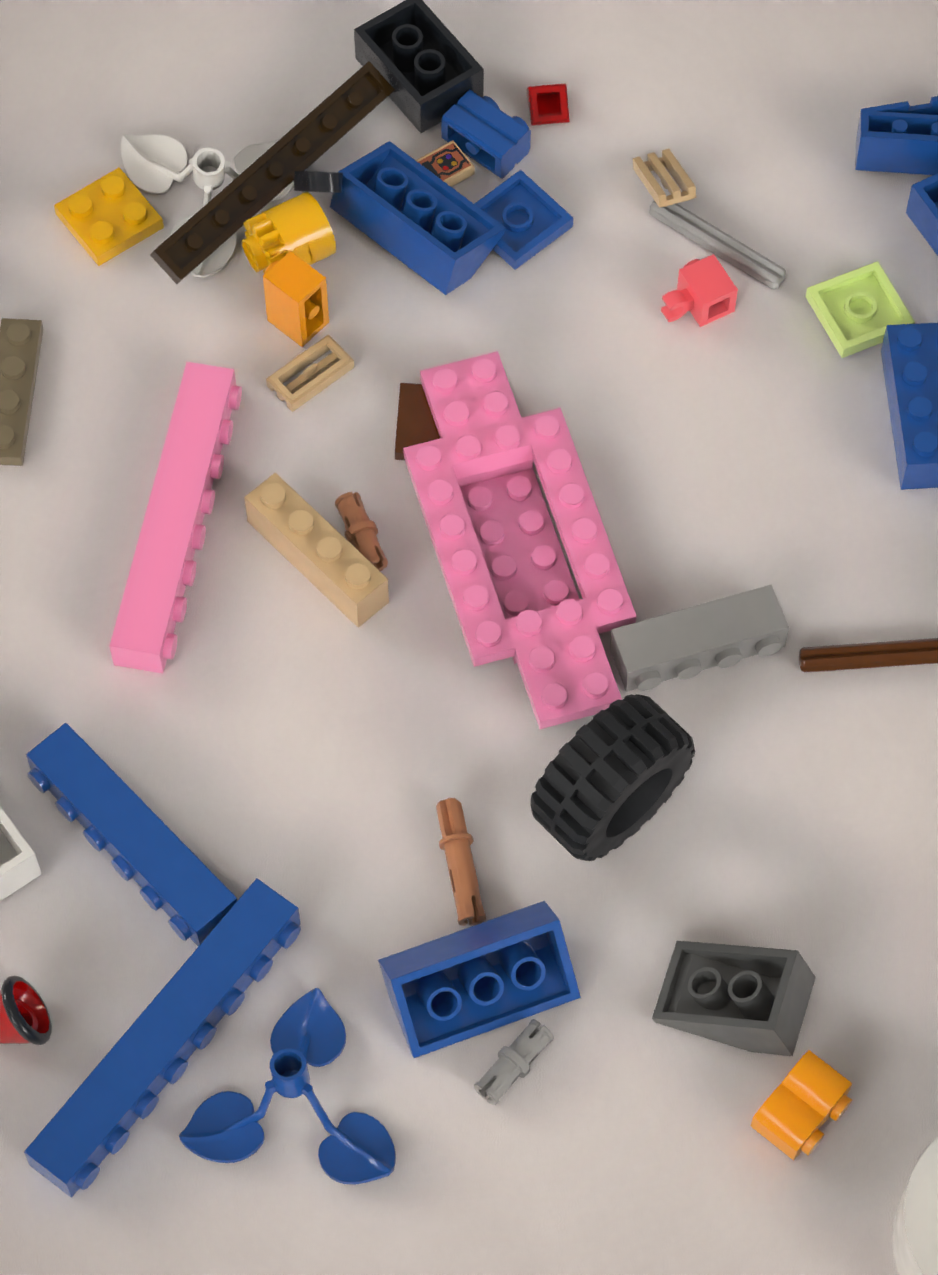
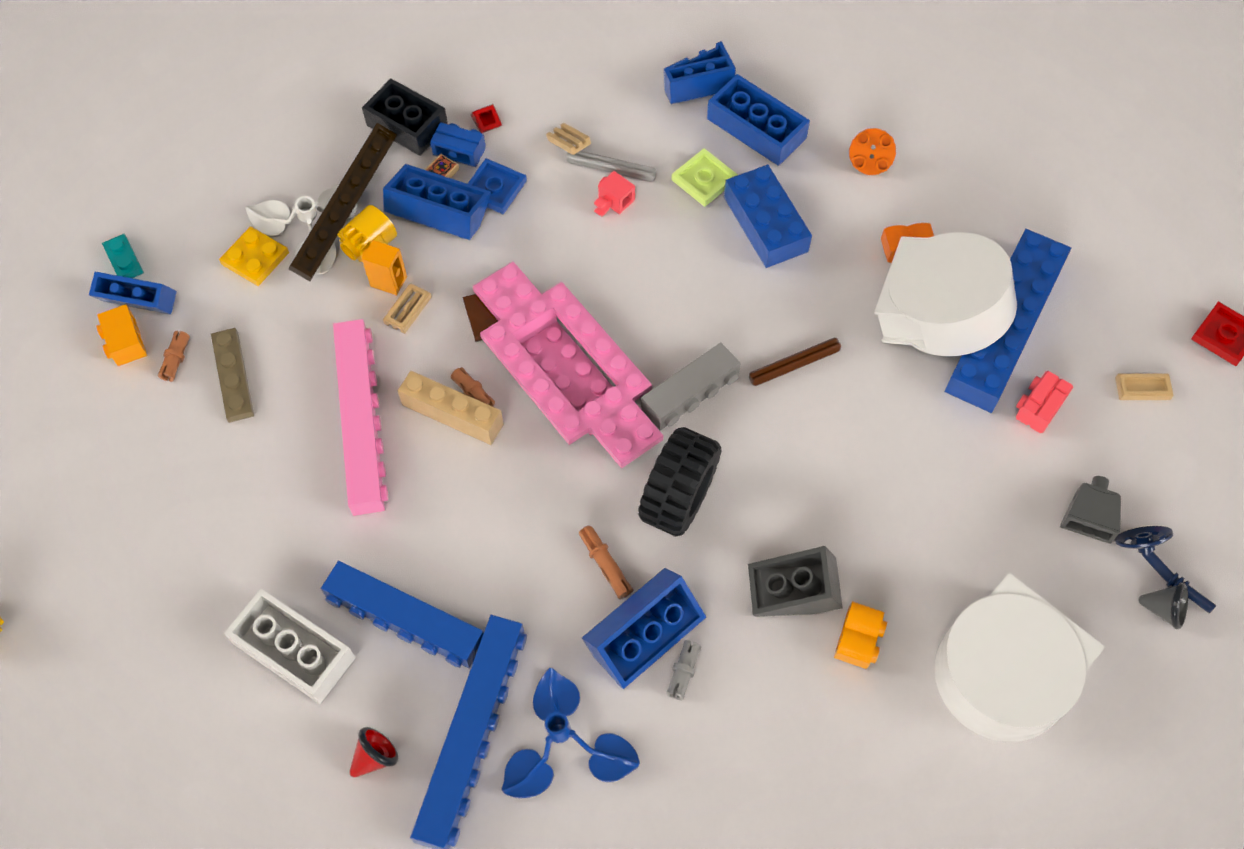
camera: 20 degrees left, 0 degrees up
(318, 181) = (373, 197): black beam -> none

